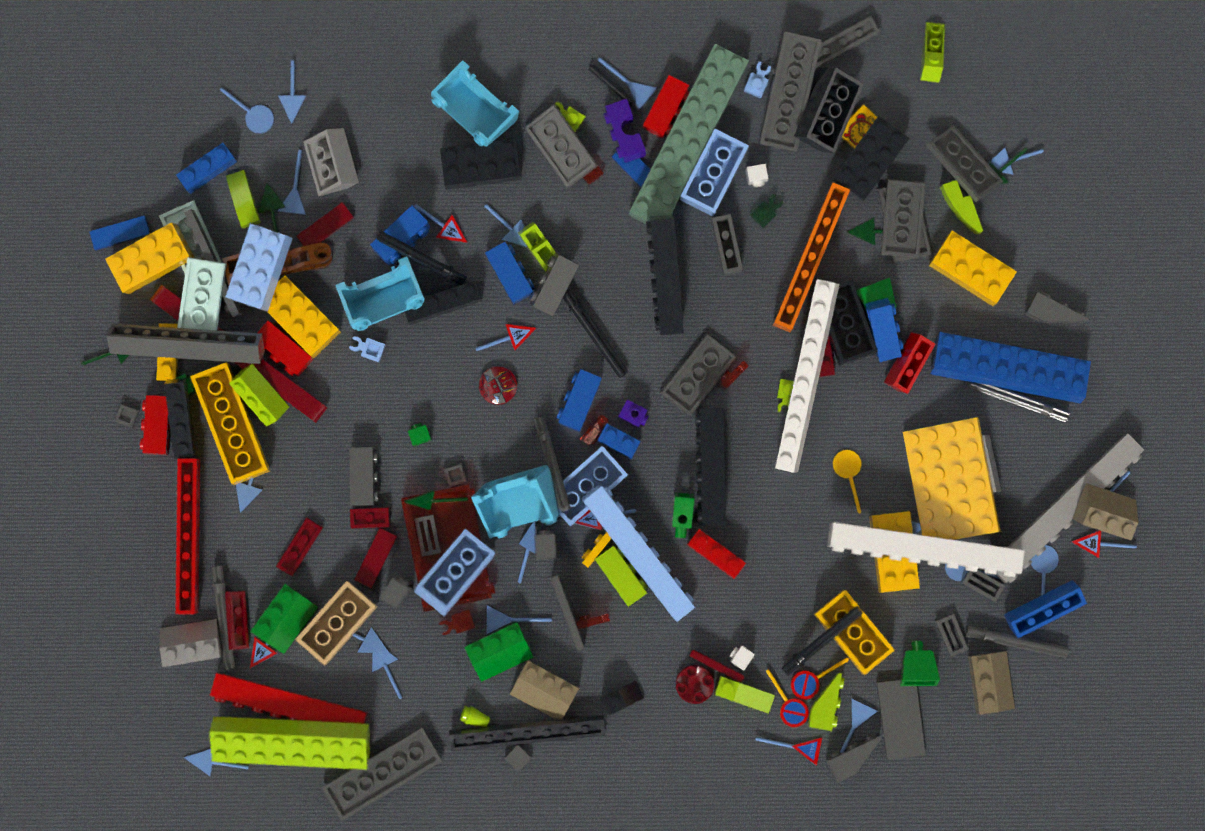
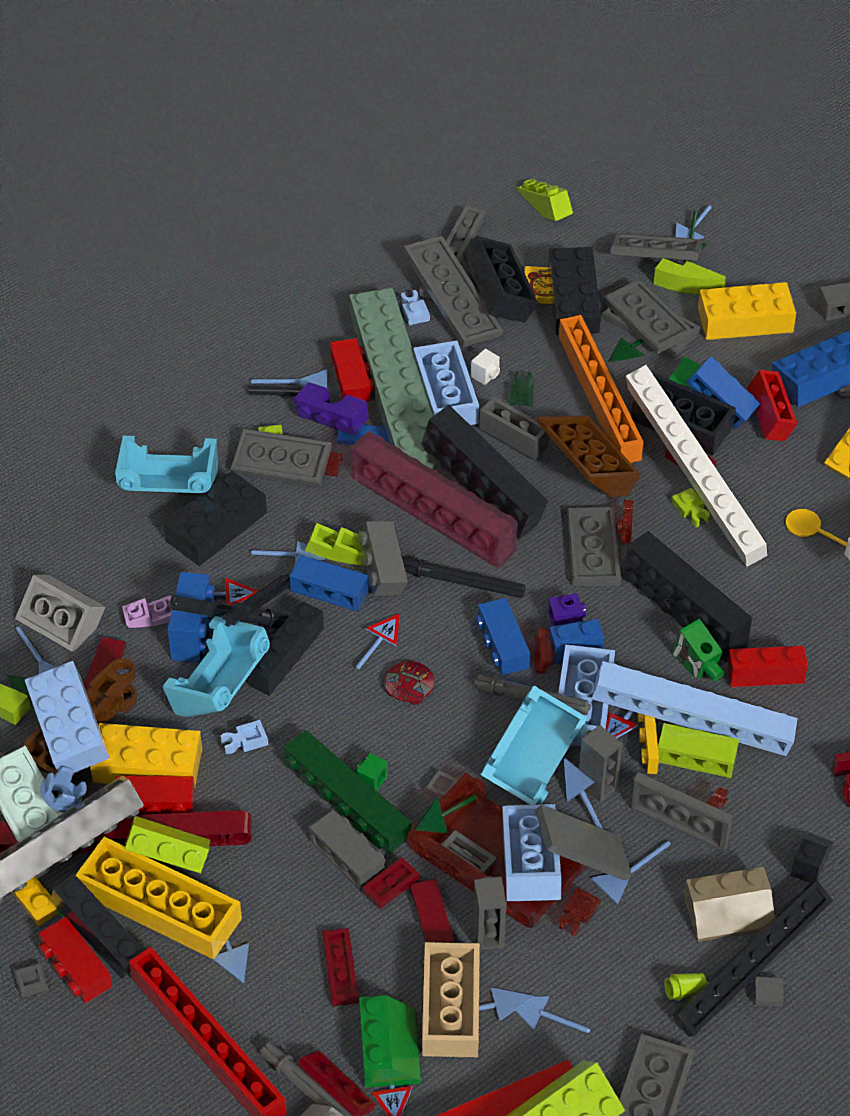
camera: 35 degrees left, 35 degrees down
(230, 318) = (62, 783): none -> medium blue piece
(385, 204) = (147, 614): none -> lavender slope
(394, 436) = (347, 792): none -> dark green brick
(420, 270) = (240, 611): none -> black axle
(488, 591) = (583, 842): none -> dark grey tile
(499, 652) = (646, 904): green slope -> none
(623, 265) = (434, 499): none -> clear pink brick
(748, 310) = (592, 453): none -> reddish brown slope

